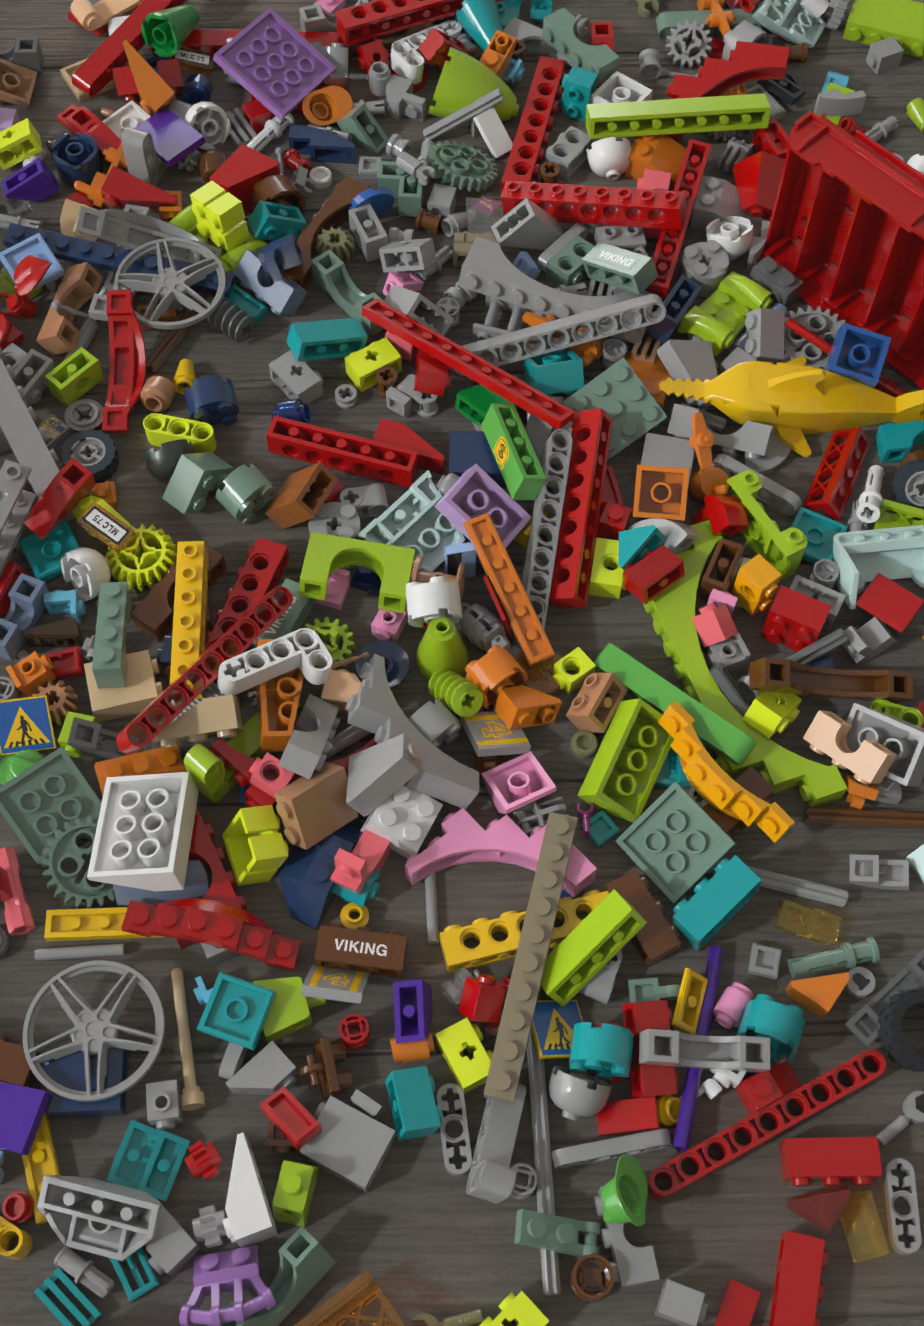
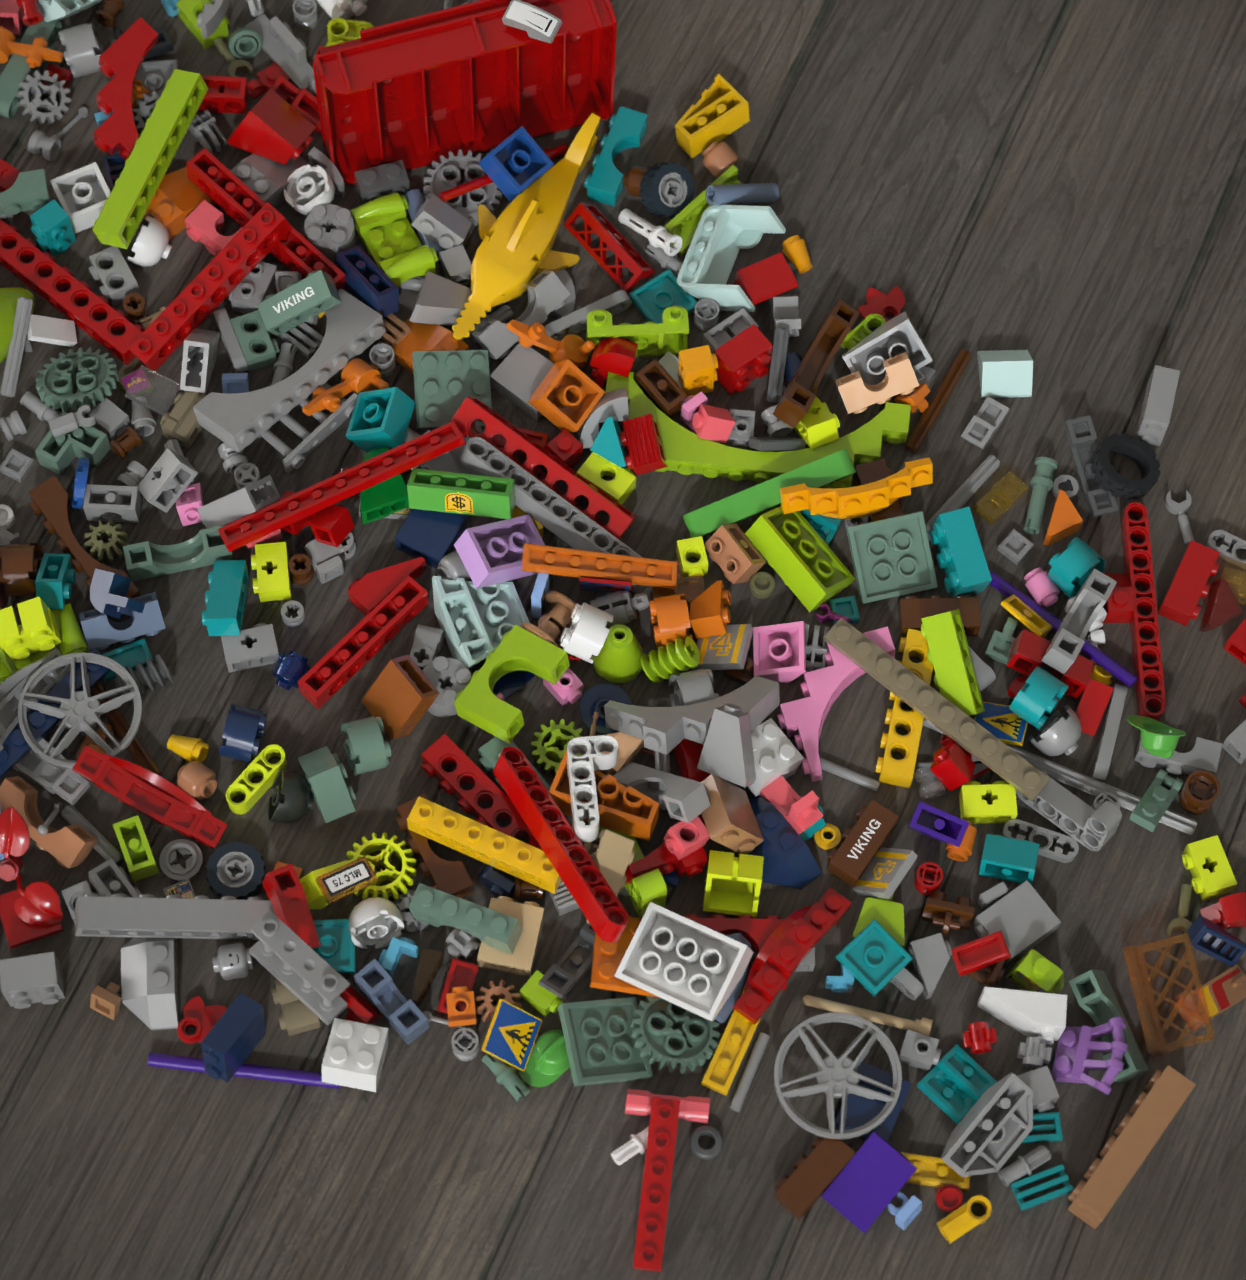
camera: 65 degrees left, 5 degrees up
(568, 326) = (353, 384): light grey beam -> none
(850, 126) = (237, 17): red pin -> none

